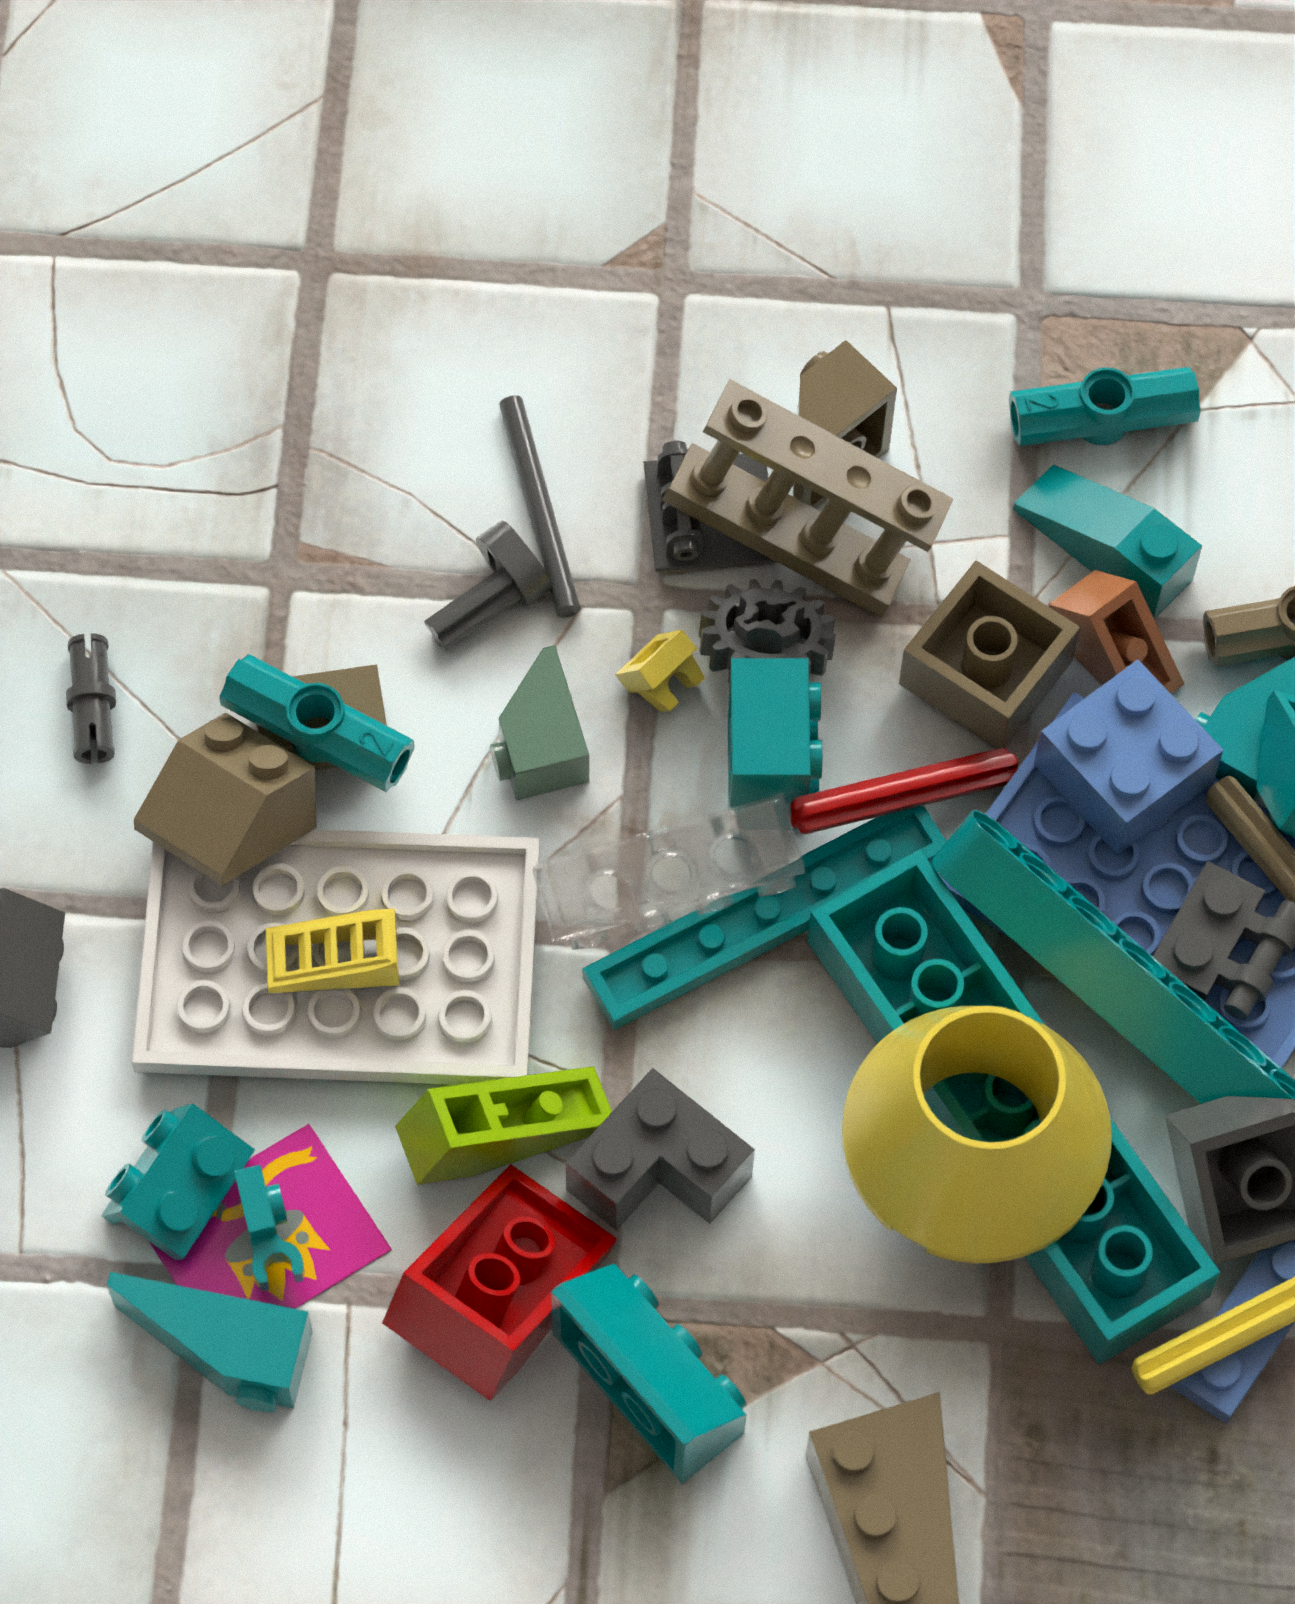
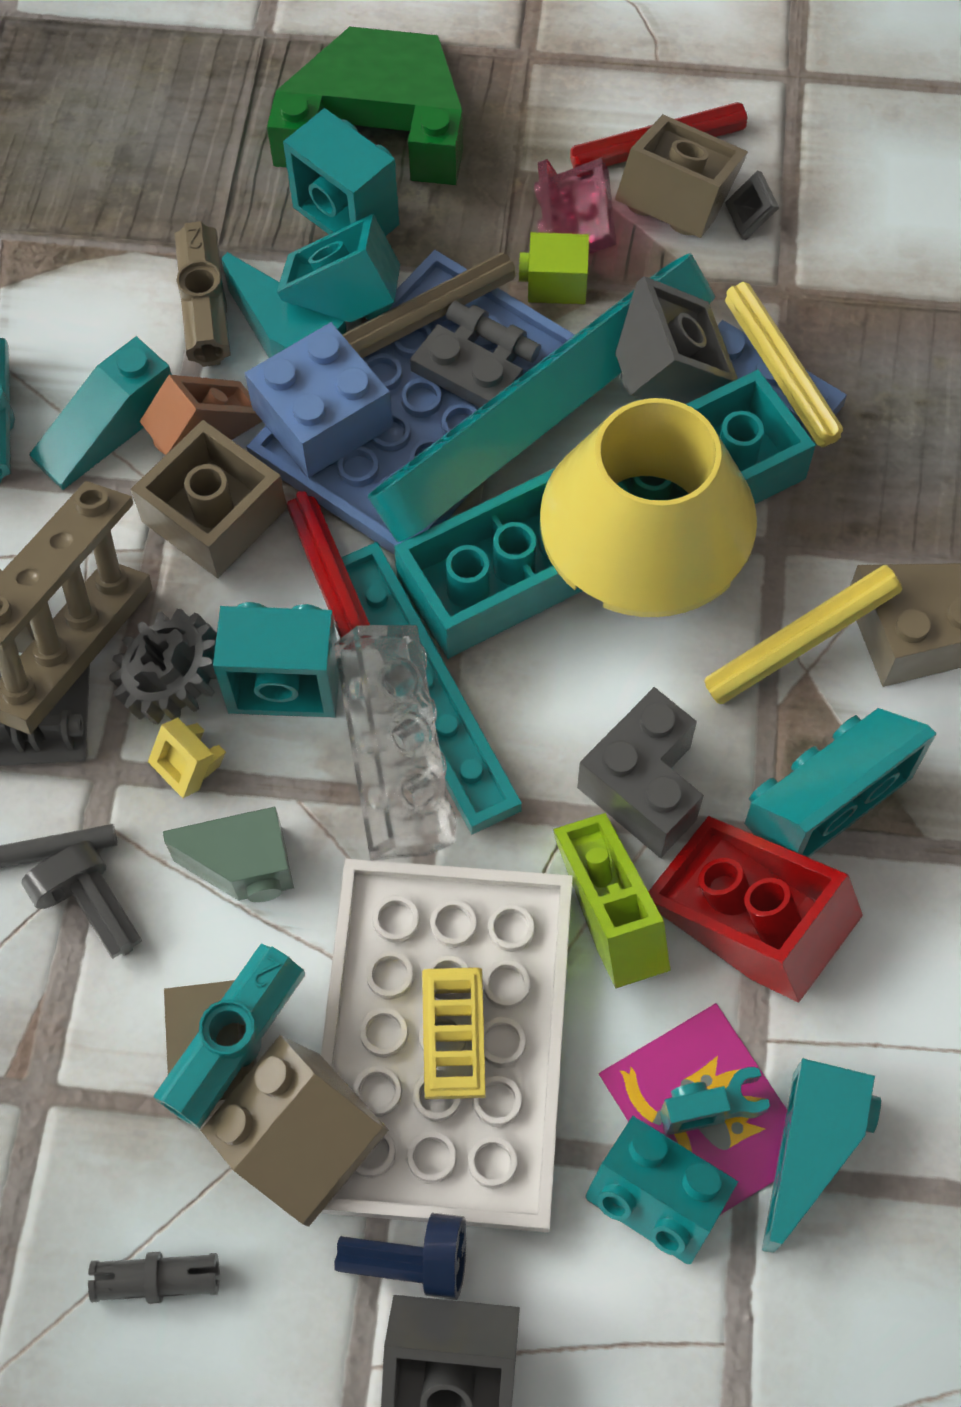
camera: 85 degrees left, 0 degrees up
(105, 953) = (436, 1265): none -> dark blue piece
(843, 1331) = (803, 634): none -> light yellow axle

